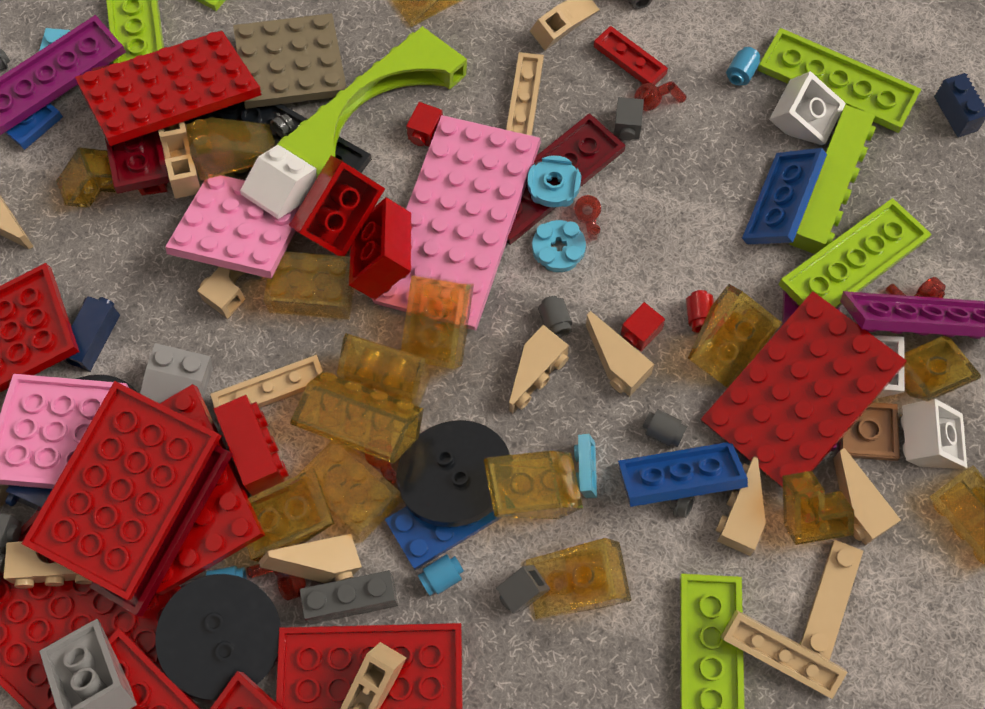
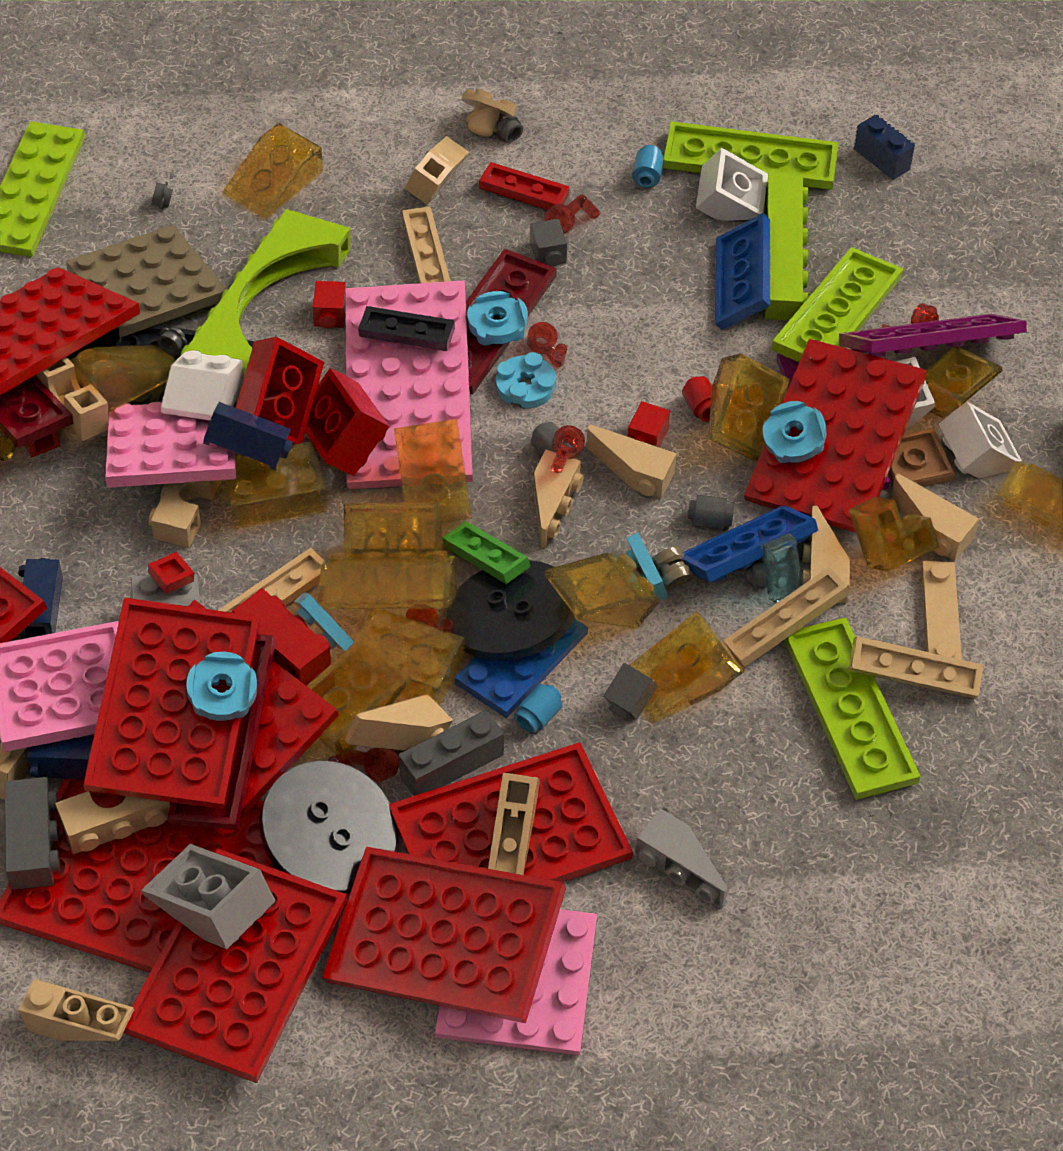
camera: 25 degrees left, 15 degrees down
(153, 477) = (232, 702): none -> medium azure plate
(180, 354) = (171, 572): none -> red plate
(290, 244) = (248, 435): none -> dark blue brick
(292, 446) = (314, 613): none -> medium azure plate
(455, 408) = (486, 552): none -> bright green plate
(471, 172) = (406, 328): none -> black plate
(555, 334) = (572, 436): none -> clear red plate
(609, 481) = (672, 567): none -> dark tan wheel
(687, 562) = (787, 617): none -> tan plate
(701, 511) = (781, 567): none -> clear light blue plate
(753, 368) = (798, 448): none -> medium azure plate

